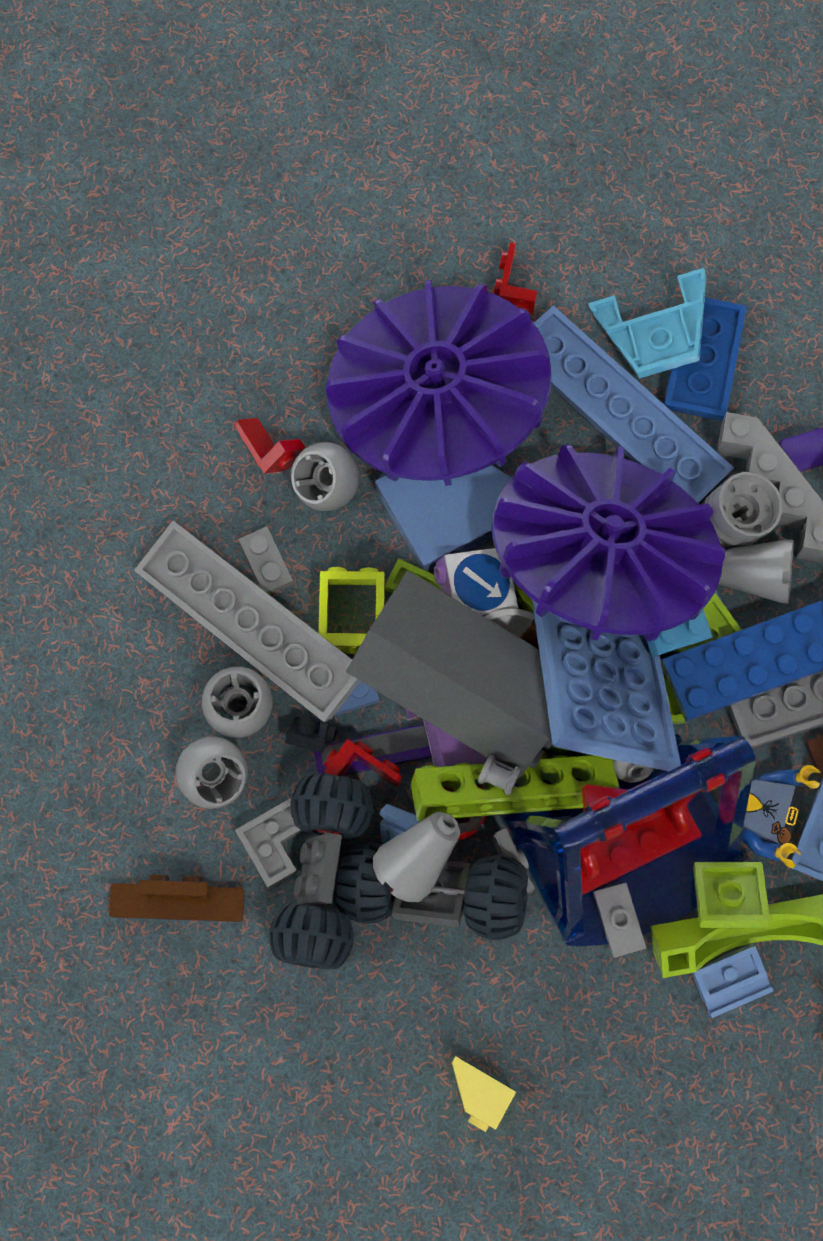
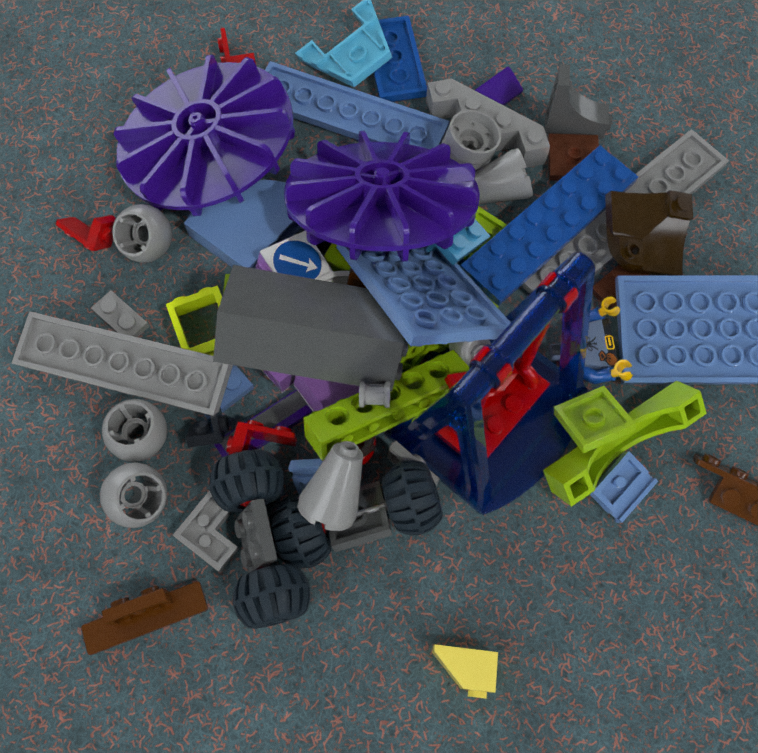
camera: 25 degrees left, 5 degrees down
(619, 920) = (516, 476): light grey plate -> none

